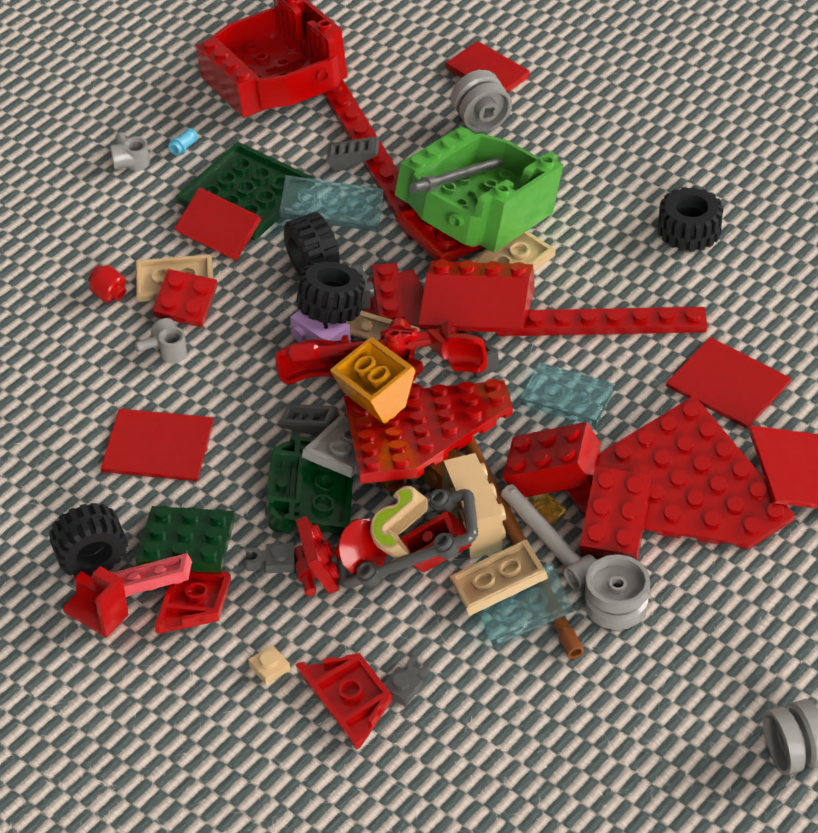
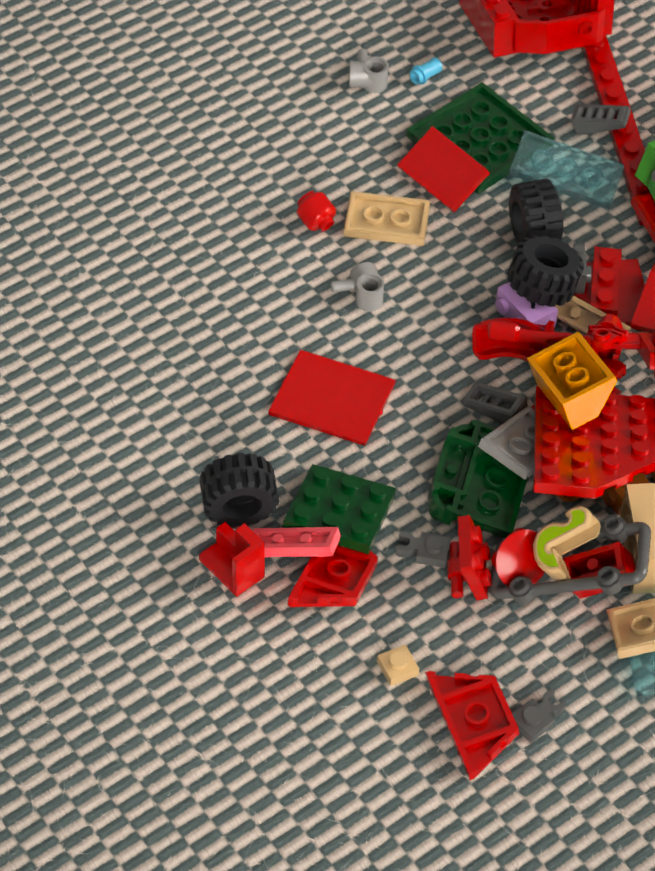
camera: 10 degrees right, 5 degrees up
(185, 298) = (393, 243): red plate -> none

